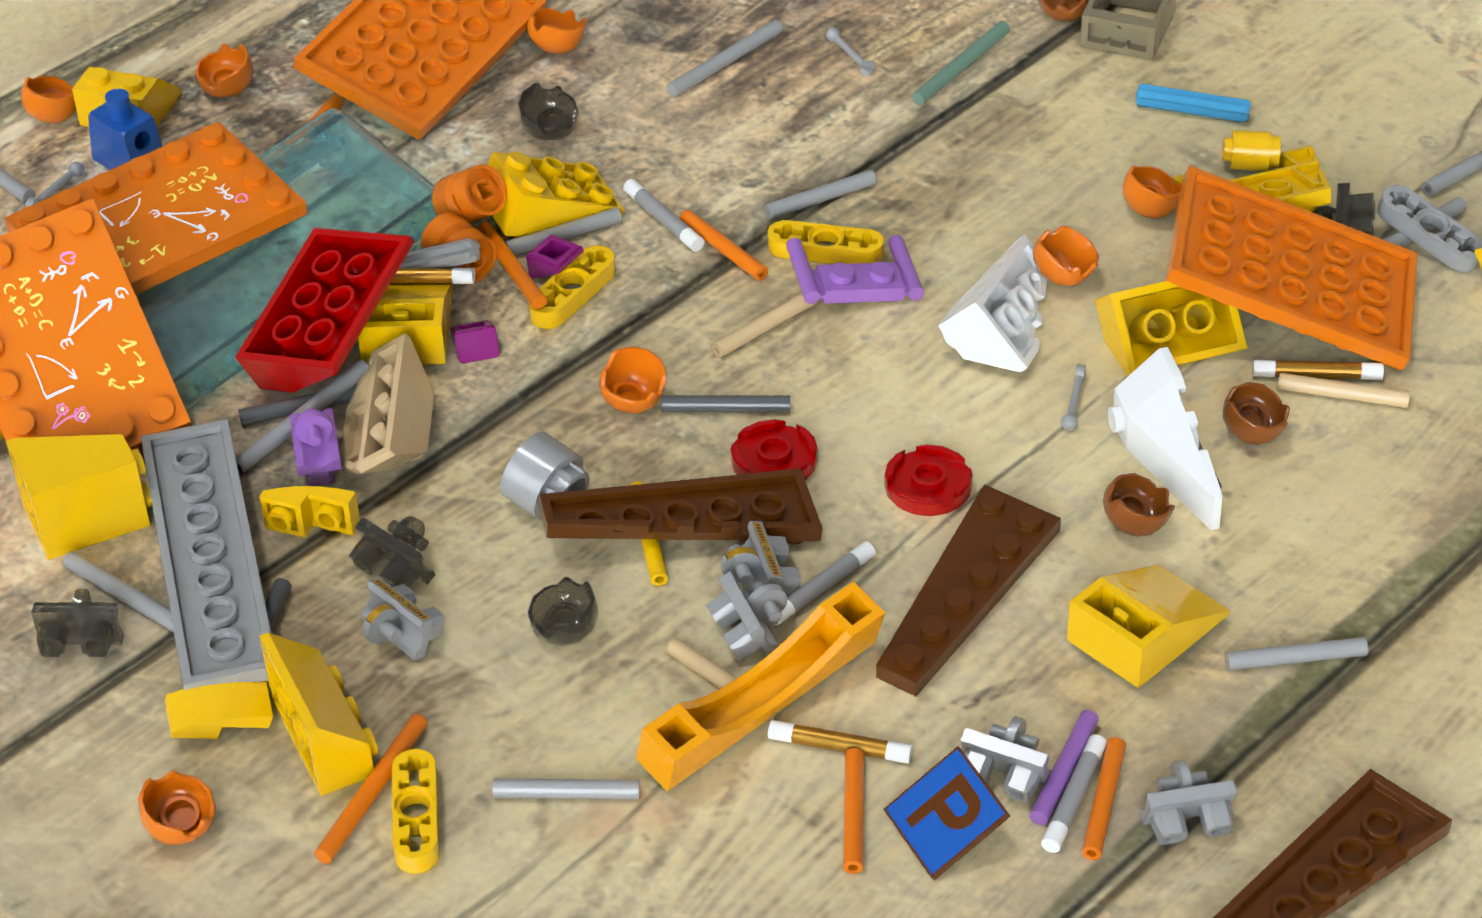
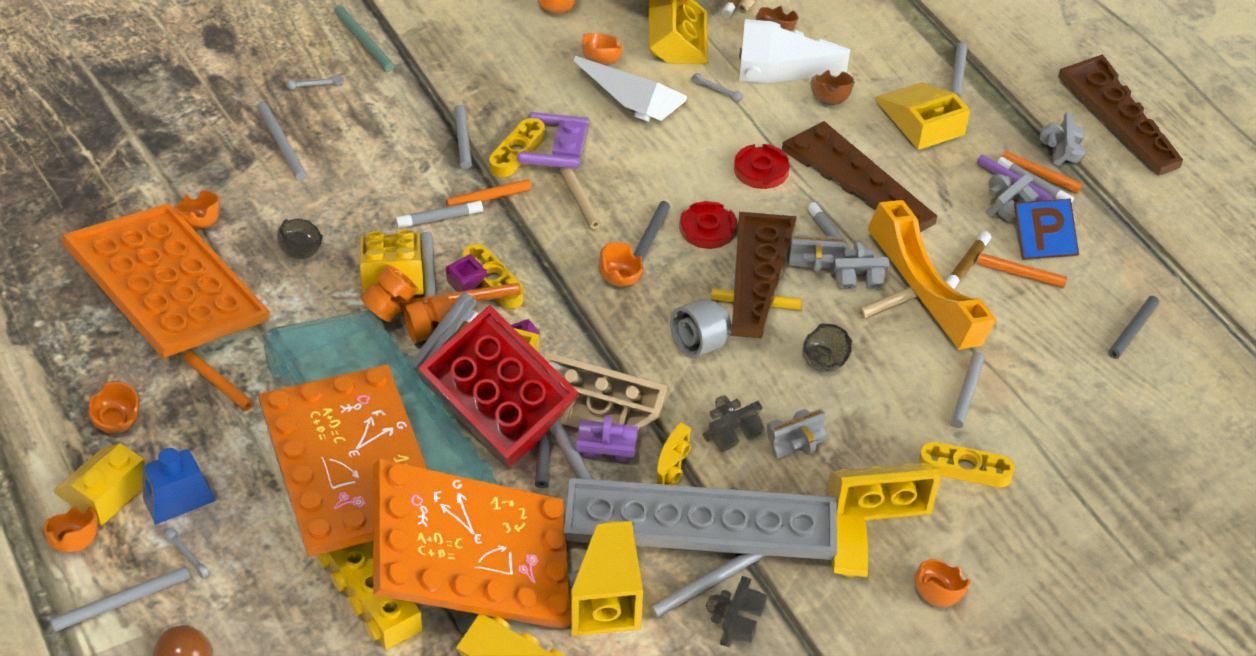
camera: 75 degrees left, 5 degrees up
(369, 790) = (944, 487): orange bar -> none

